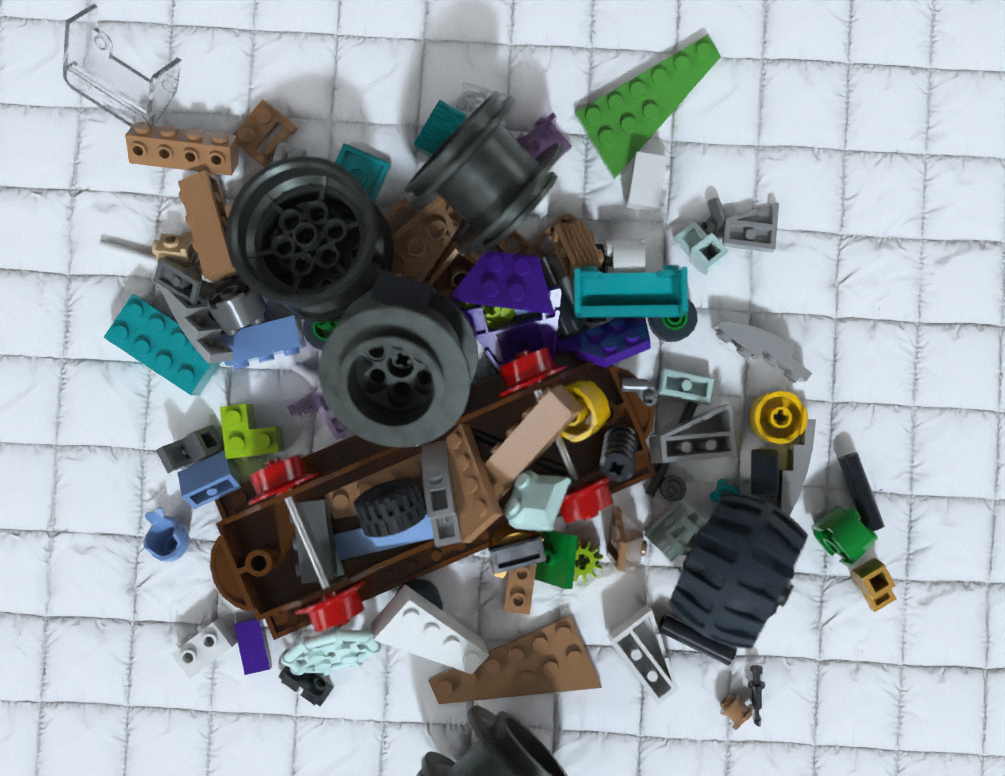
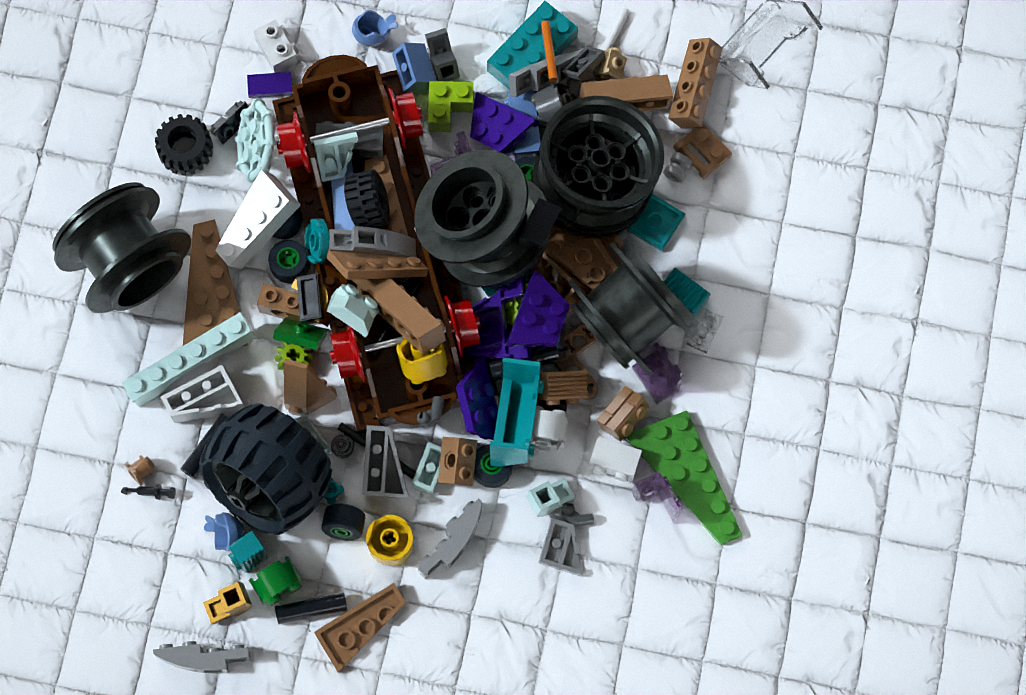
camera: 100 degrees right, 15 degrees down
(171, 320) = (549, 51): none -> orange bar
(268, 369) = (498, 124): none -> dark purple wing
(338, 754) = (178, 129): none -> black tyre
(339, 555) = (334, 155): none -> light aqua wing
(443, 557) = (317, 241): none -> teal tile
(464, 594) = (288, 253): none -> black wheel
(593, 179) = (623, 414): none -> medium nougat brick
(604, 680) = (217, 341): none -> light aqua arch
(619, 453) = (381, 384): black piece -> none
(678, 139) = (646, 489): none -> clear purple bracket
(678, 355) = (457, 461): none -> medium nougat brick
(797, 465) = (333, 546): light grey slope -> none
(800, 600) = (226, 528): none -> medium blue hat
(818, 573) = (247, 552): none -> teal brick
(881, 447) = (353, 629): none -> medium nougat wing
(938, 611) = (191, 657): none -> light grey slope

